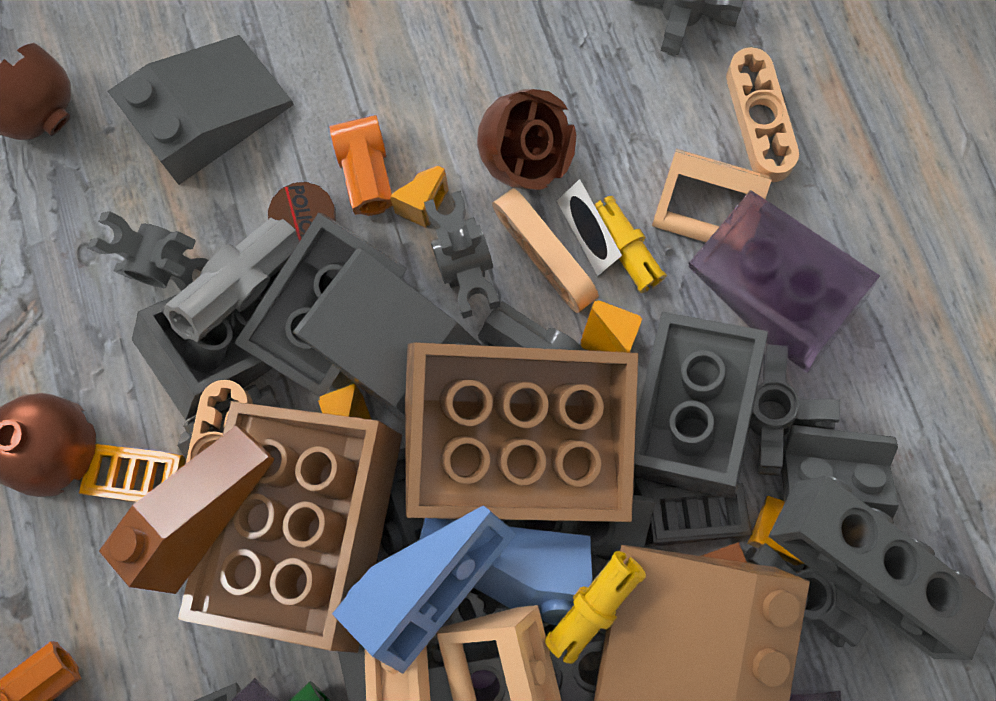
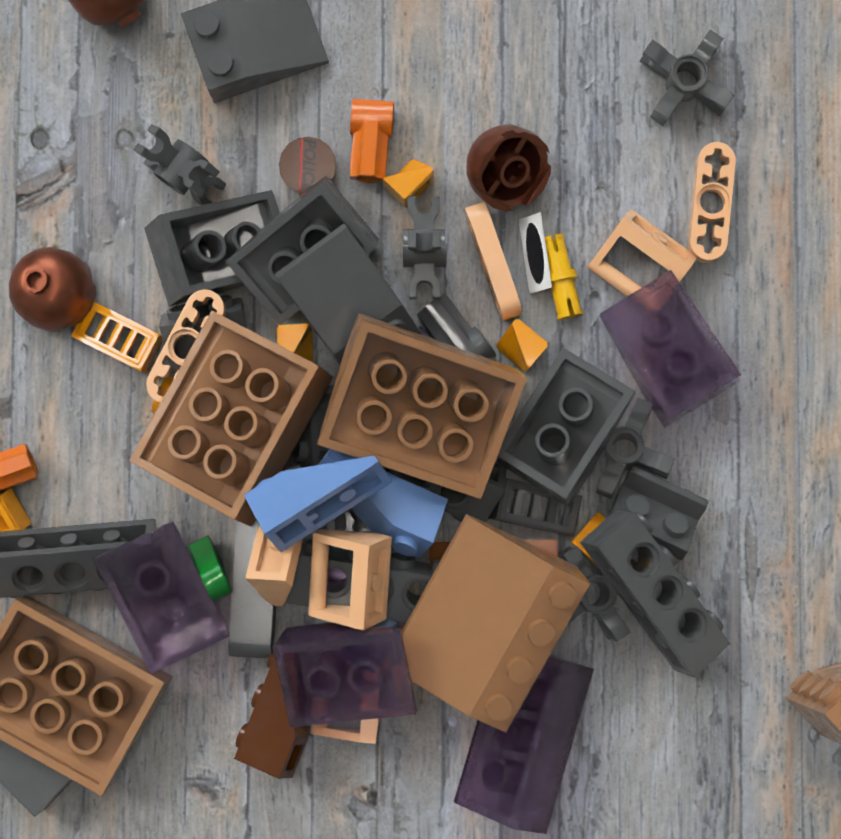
camera: 15 degrees right, 10 degrees up
(185, 514) = (158, 386): dark orange slope -> none
(231, 280) = (239, 208): light grey piece -> none
(595, 607) = (431, 551): yellow pin -> none

